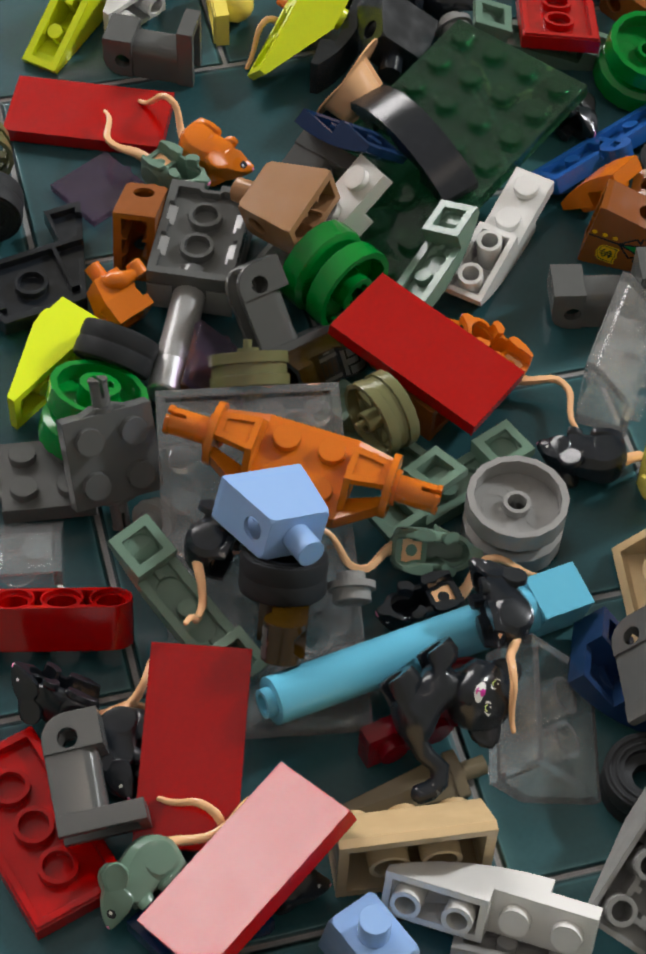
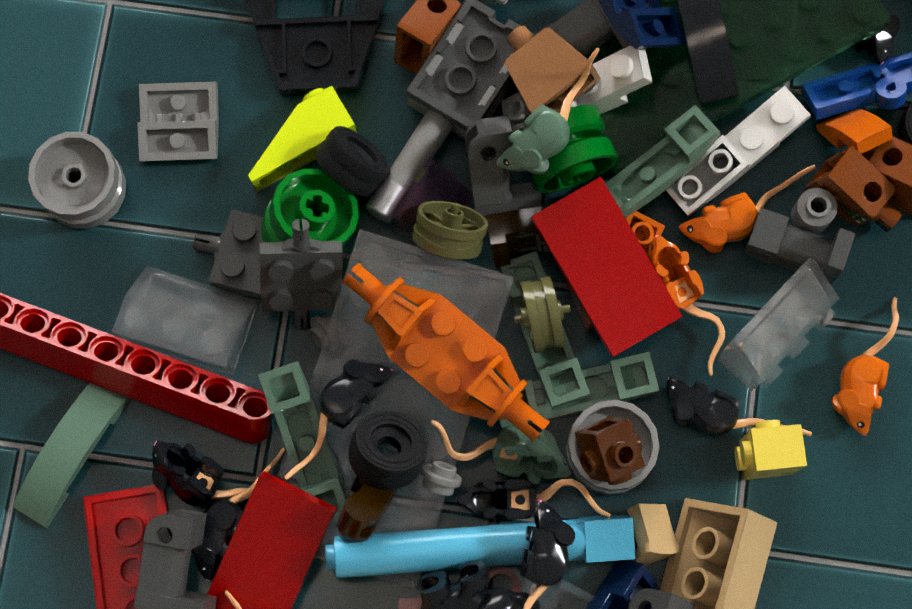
camera: 30 degrees right, 25 degrees up
(115, 295) = (378, 97): orange piece -> none
(273, 512) = (394, 408): light blue torso -> none
(309, 244) = (544, 133): none -> sand green animal
(520, 488) = (610, 450): none -> reddish brown brick
(524, 293) = (731, 220): none -> orange animal
(601, 254) = (807, 219): none -> light grey brick
(602, 583) = (652, 533): none -> tan tile

